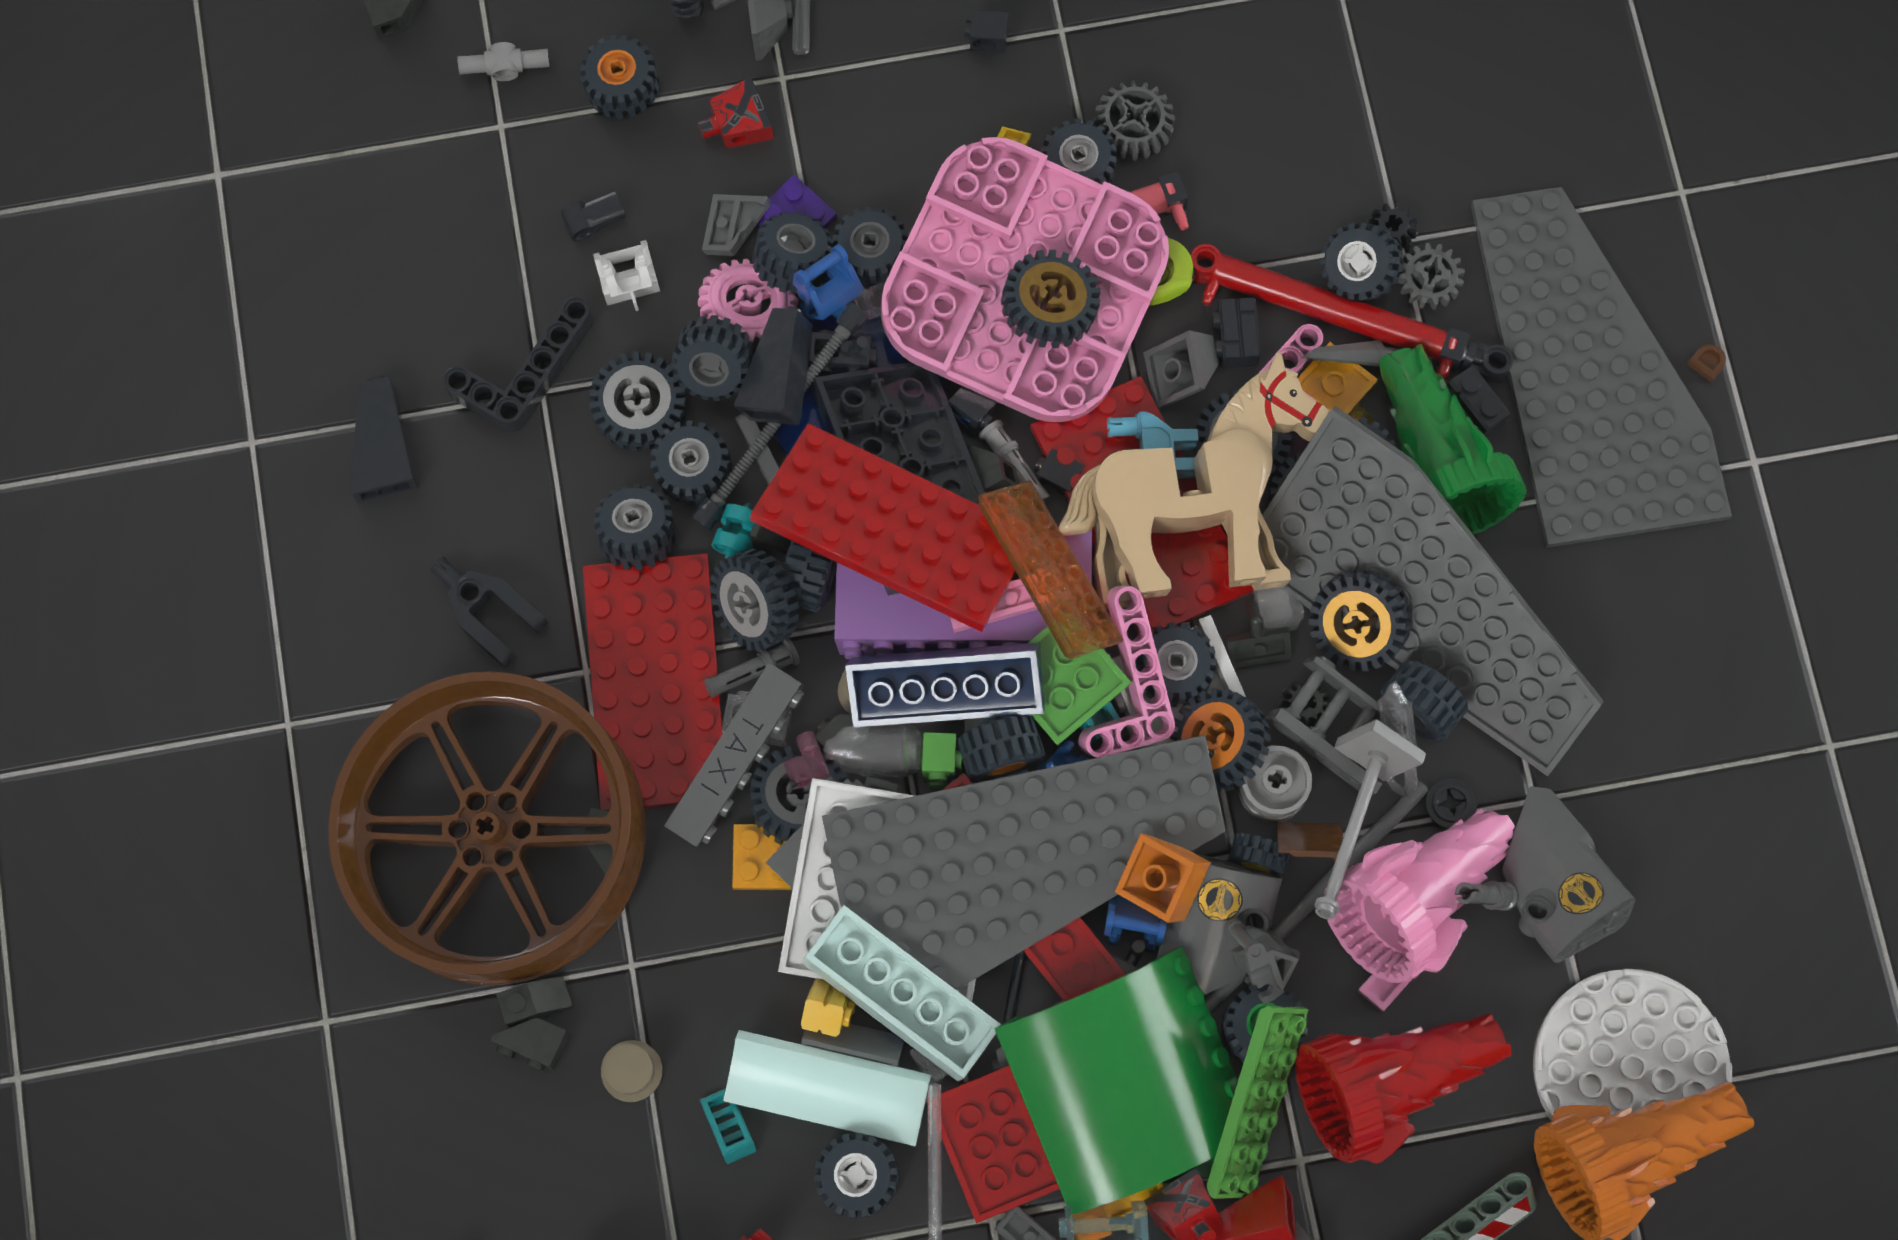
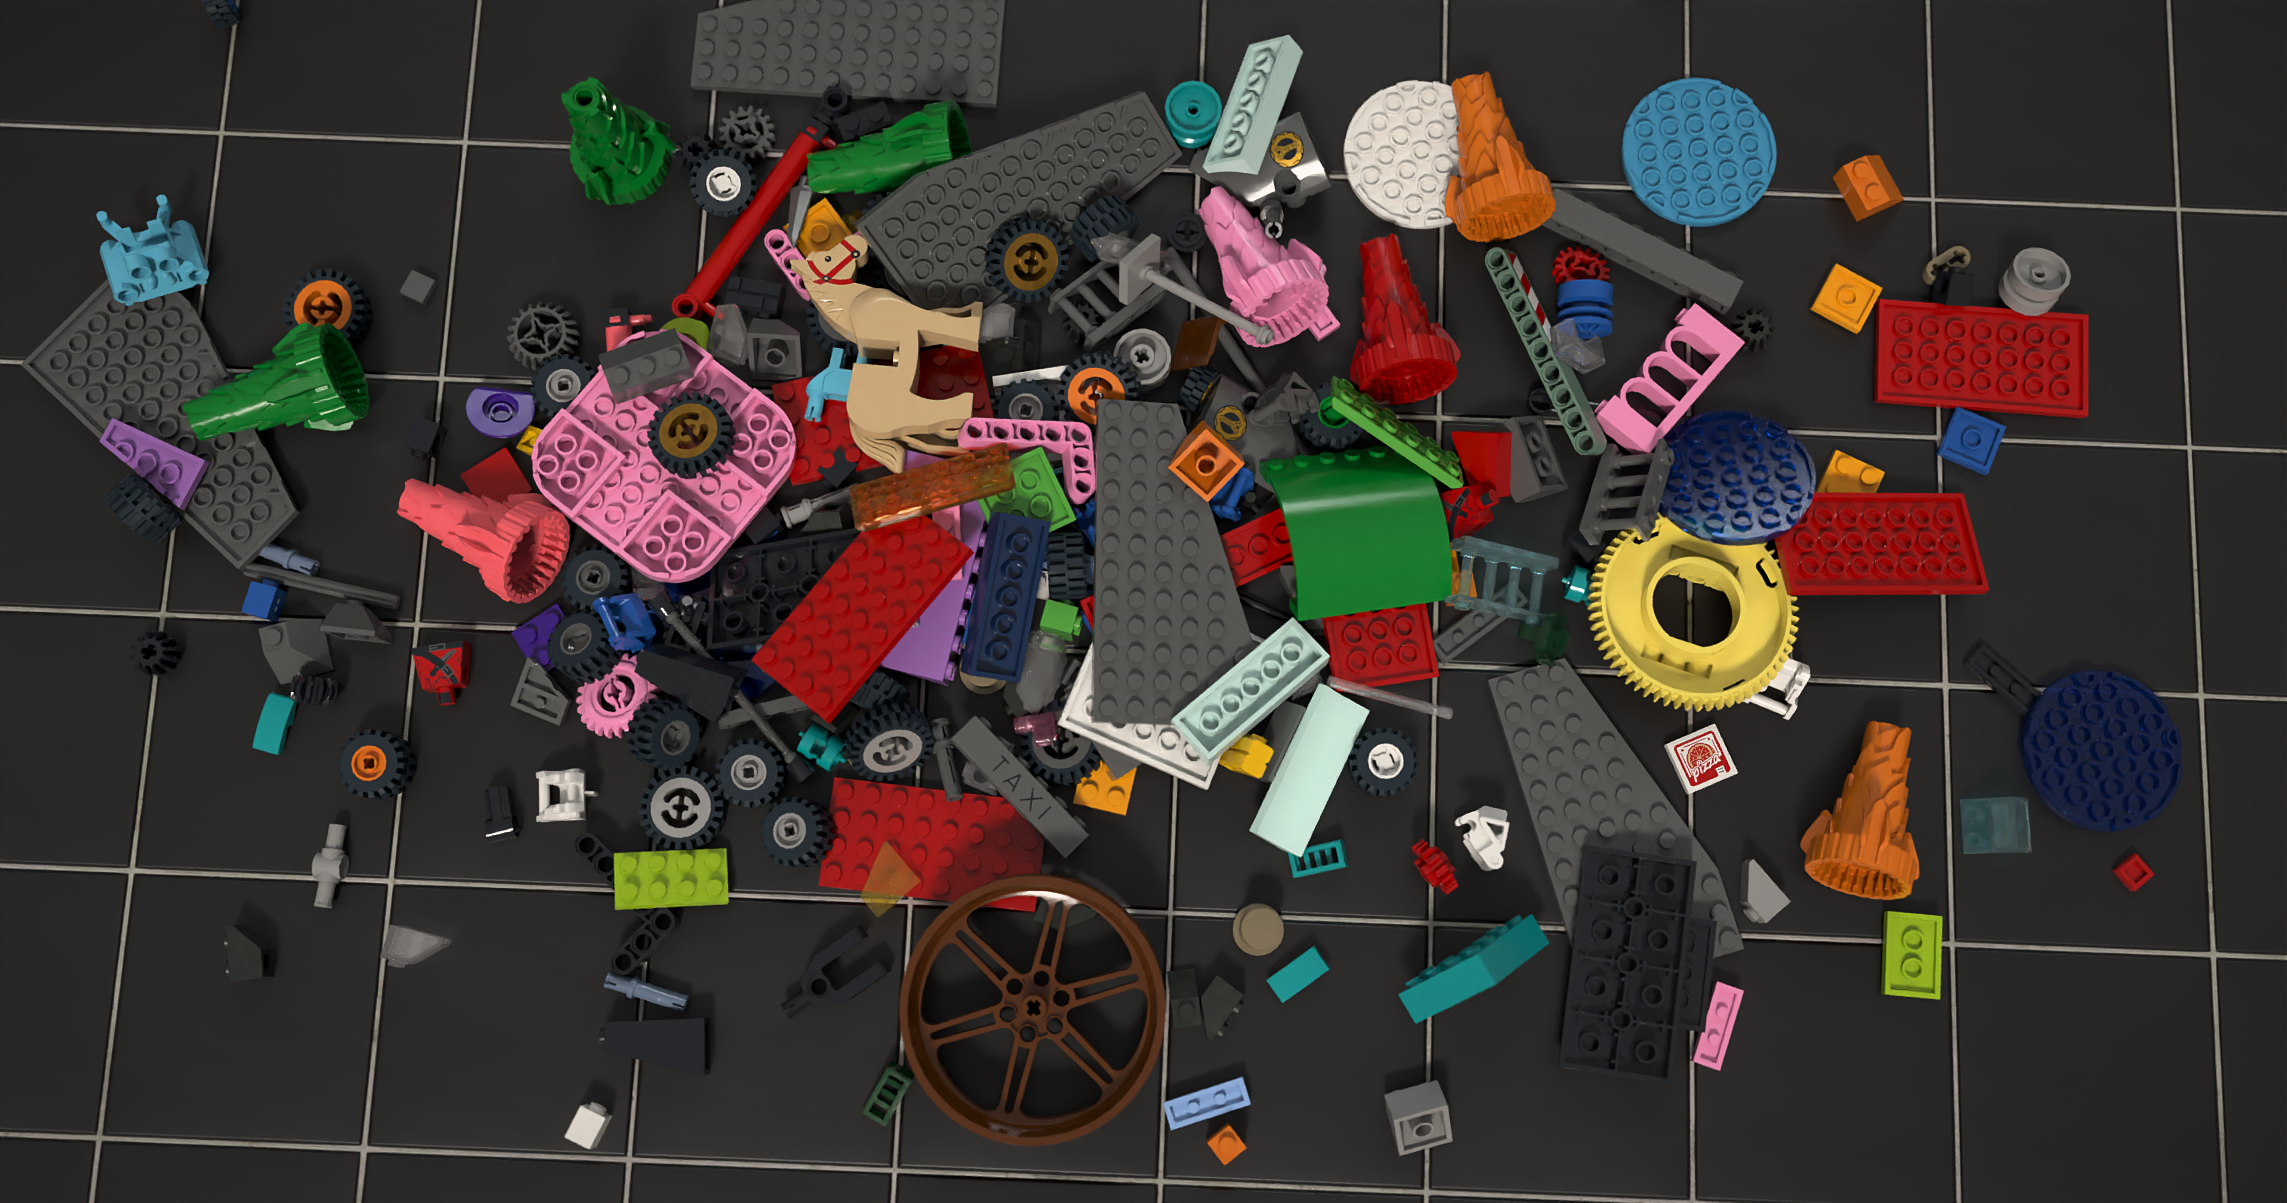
camera: 80 degrees left, 5 degrees up
(278, 390) = (588, 1125): none -> white brick
(378, 1085) = (1226, 1144): none -> orange brick
(387, 697) = (900, 1073): none -> dark green slope
(421, 1053) = (1206, 1103): none -> light blue plate
(431, 420) = (635, 988): none -> sand blue pin
(435, 162) = (410, 945): none -> clear slope
(557, 406) = (670, 878): none -> lime plate
(588, 1128) = (1298, 974): none -> teal slope
(601, 638) = (888, 881): none -> wing
(887, 145) = (512, 542): none -> coral cone
(957, 116) = (497, 477): none -> red tile
(1035, 97) = (500, 411): none -> hat
(1117, 229) = (645, 366): none -> dark grey slope
(1182, 312) = (728, 336): none -> clear slope
(1370, 138) = (614, 146): none -> green cone
(1615, 779) = (1192, 114): none -> teal wheel
(1627, 844) = (1254, 106): none -> light aqua arch

